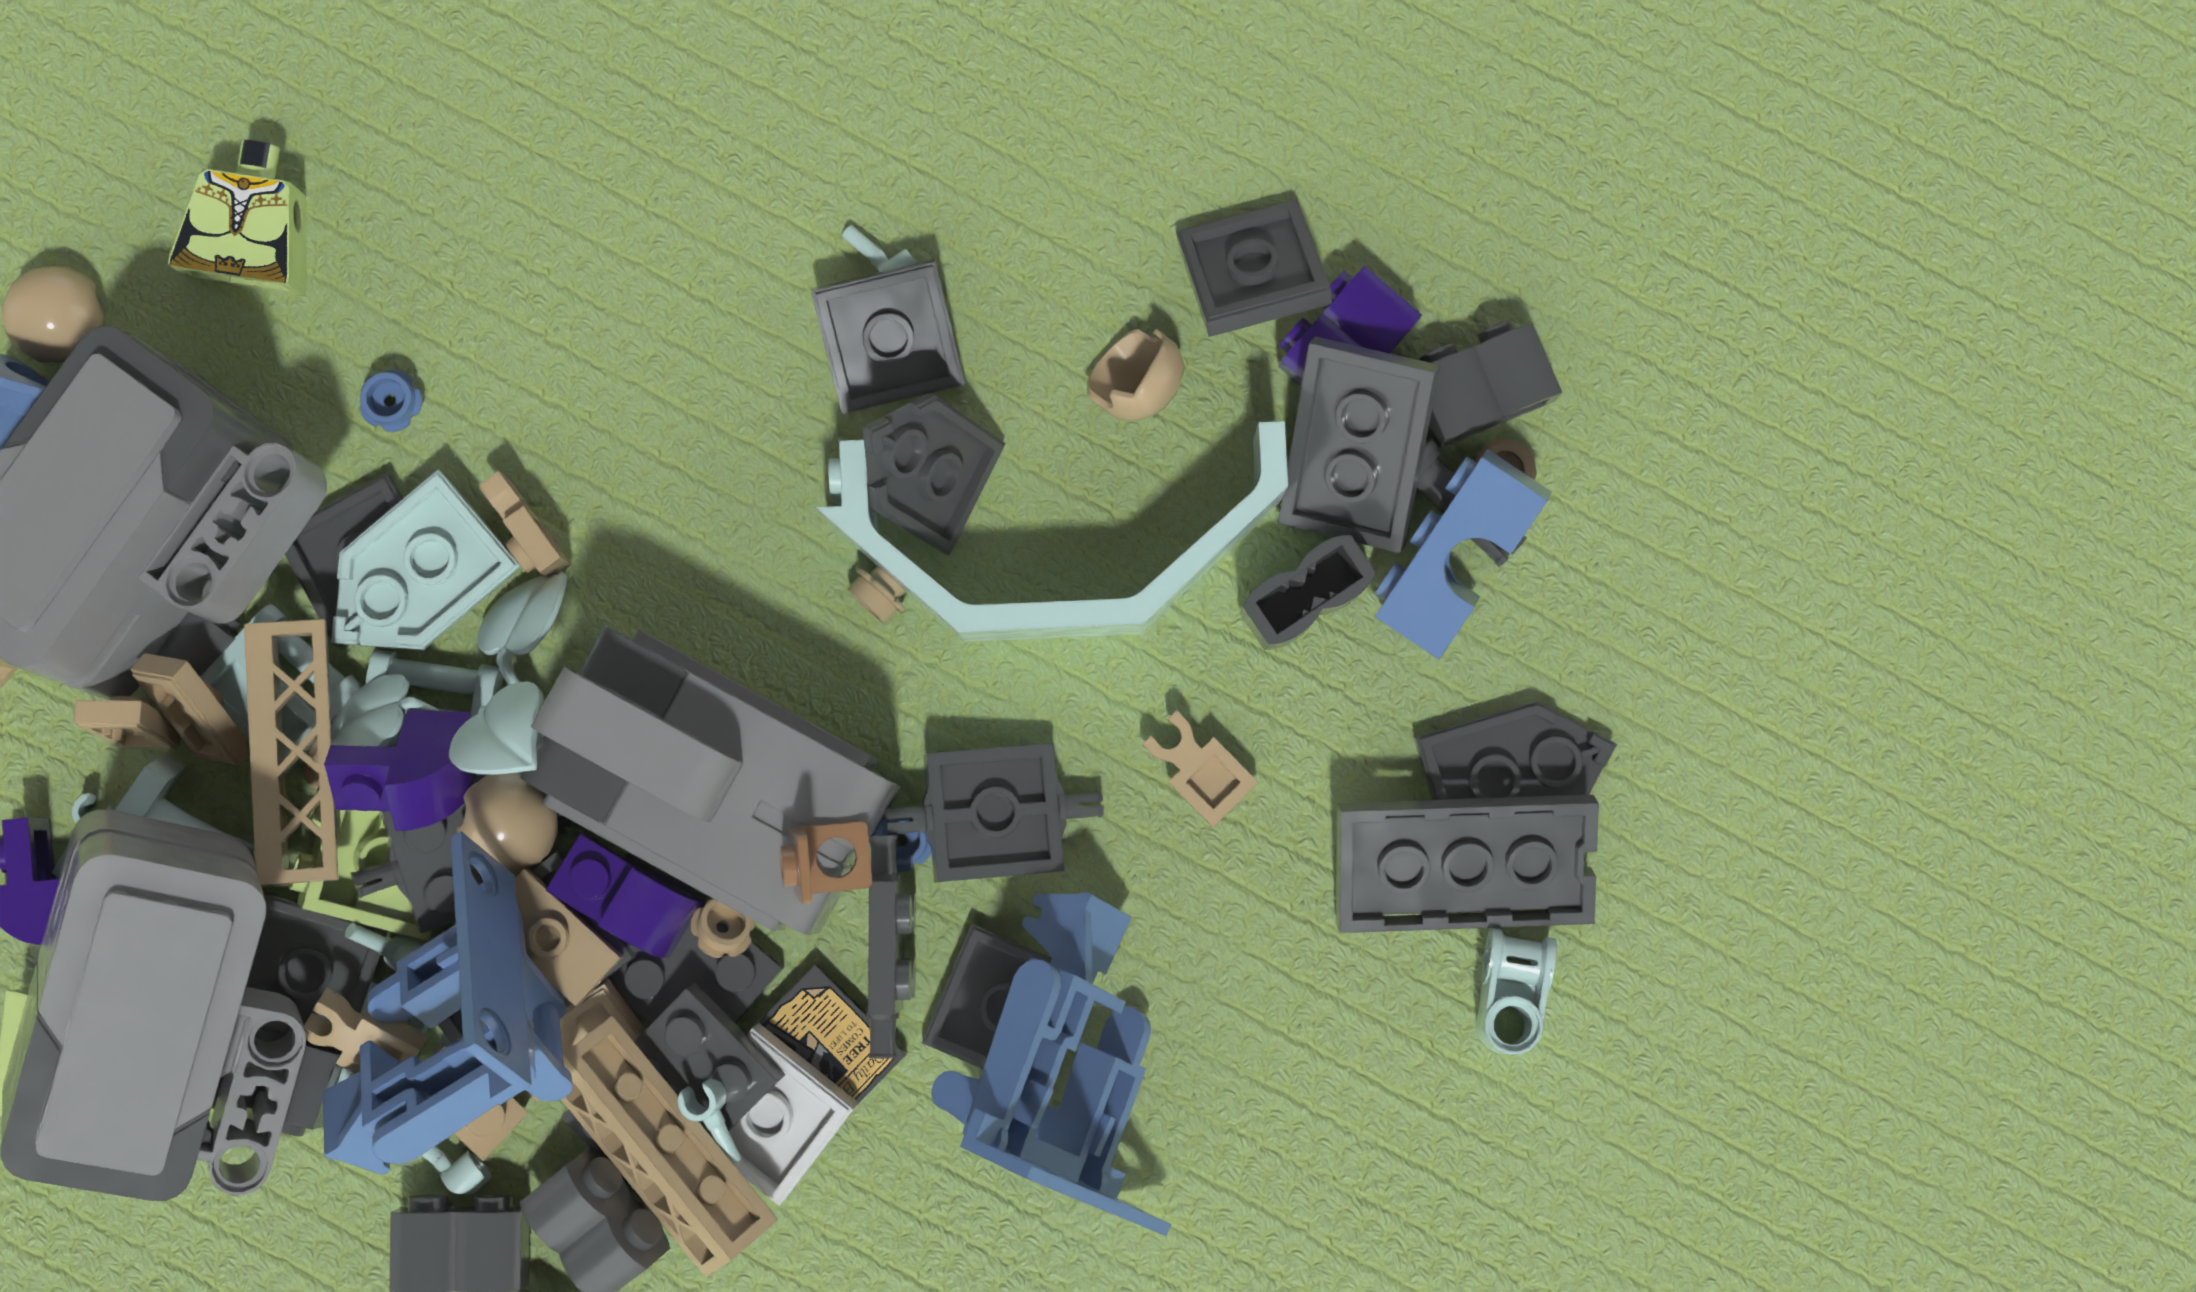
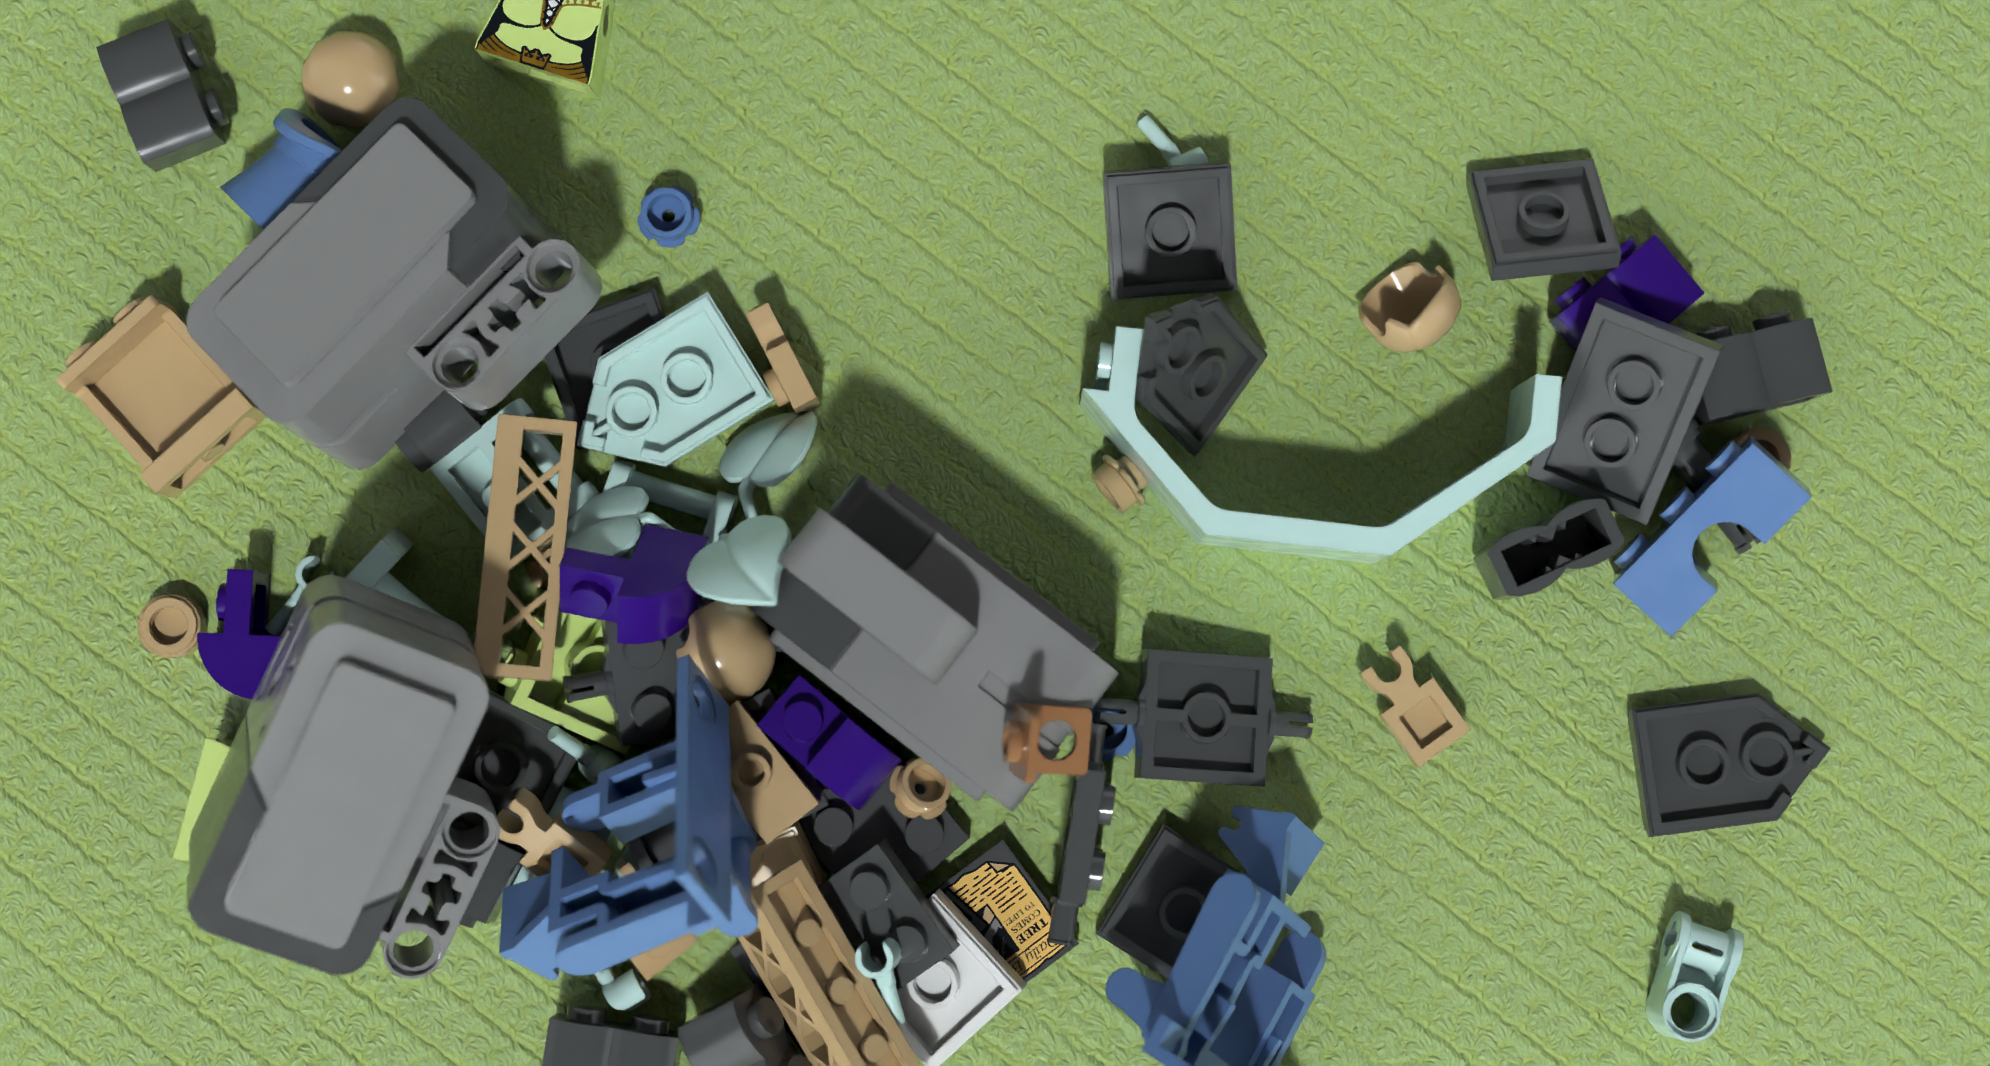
camera: 10 degrees right, 0 degrees up
(126, 722) = (365, 493): tan plate -> none
(192, 708) = (431, 489): tan plate -> none
(1465, 859) = (1665, 839): dark grey piece -> none

